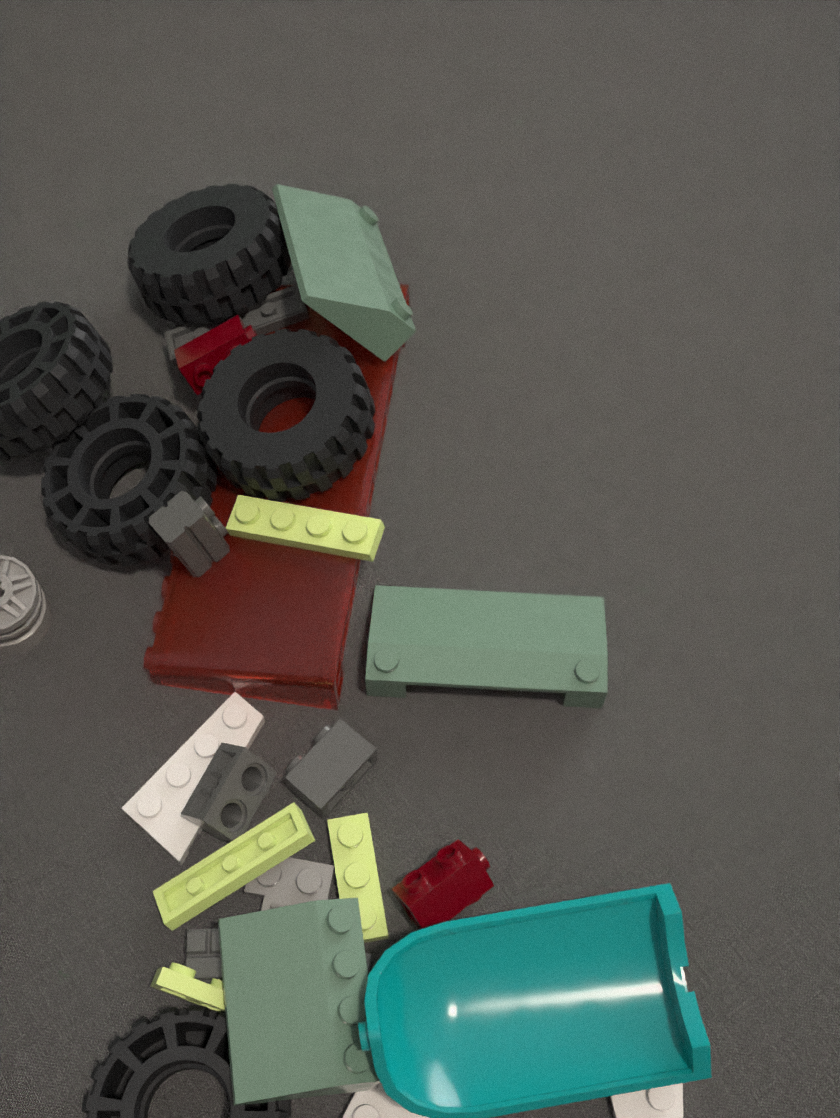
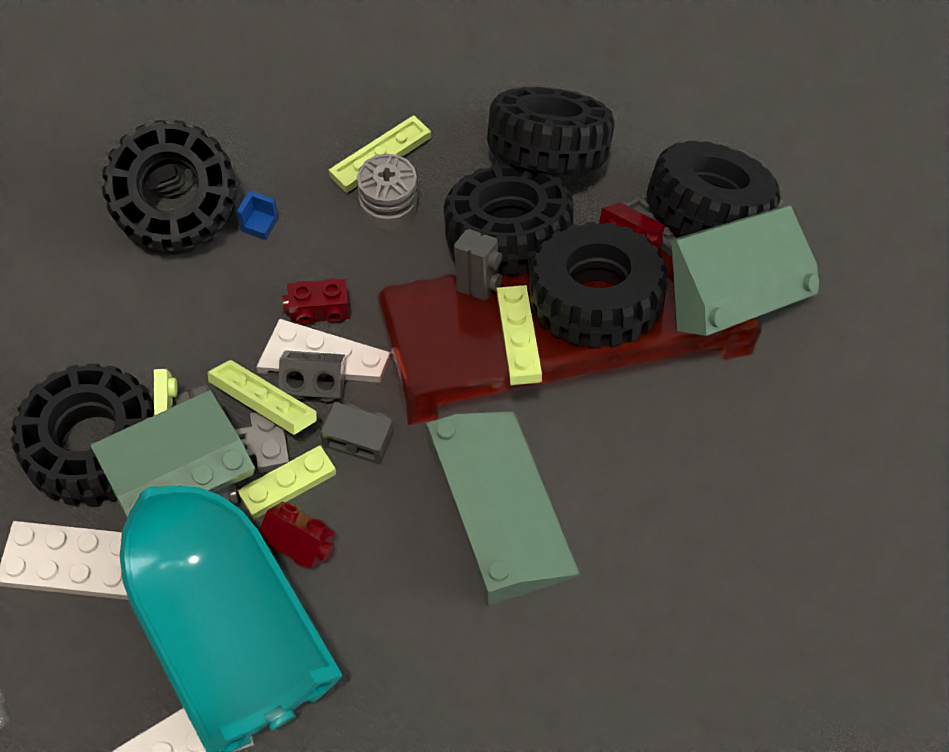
camera: 65 degrees right, 5 degrees down
(118, 755) = (317, 301): none -> dark red brick

